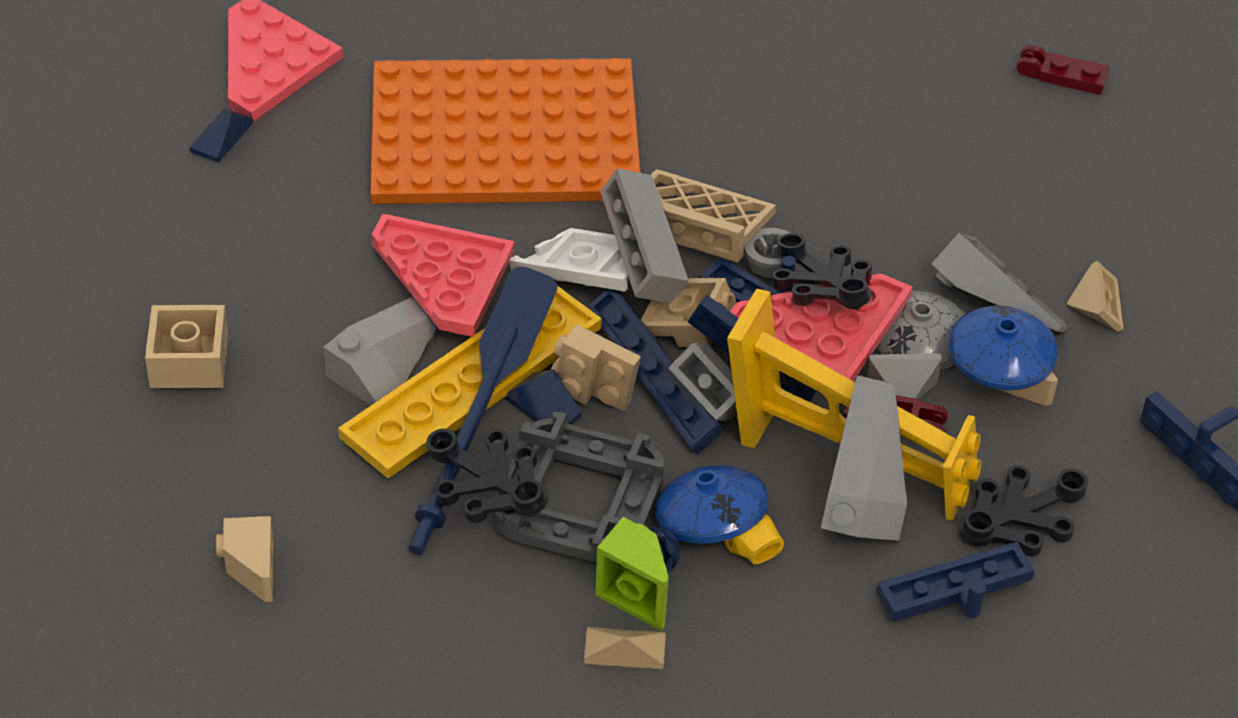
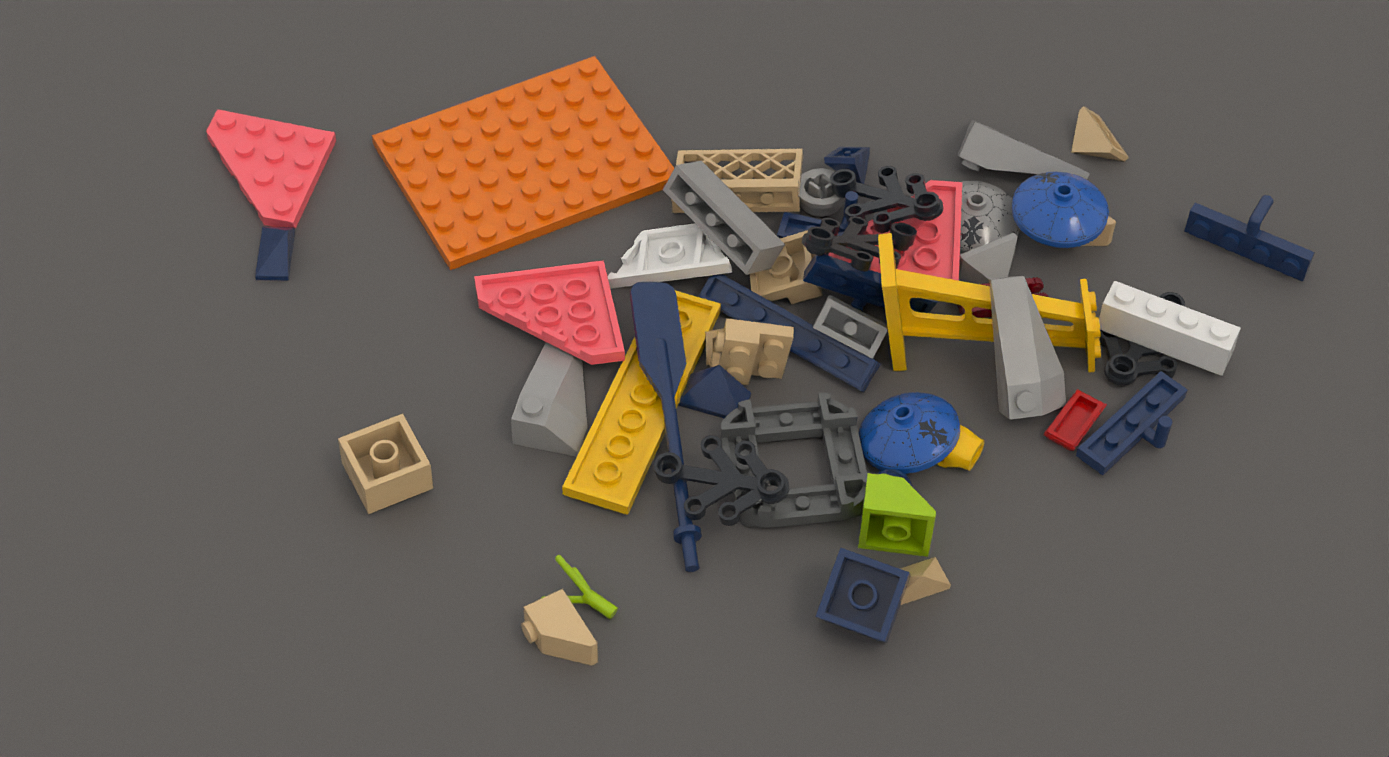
camera: 25 degrees left, 5 degrees up
(300, 535) = (589, 596): none -> lime plant
(555, 634) = (863, 595): none -> dark blue brick
(736, 286) = (826, 240): none -> black plant
(819, 235) = (850, 158): none -> dark blue slope
(897, 557) = (1074, 420): none -> red tile
(1048, 501) = (1168, 328): none -> white brick

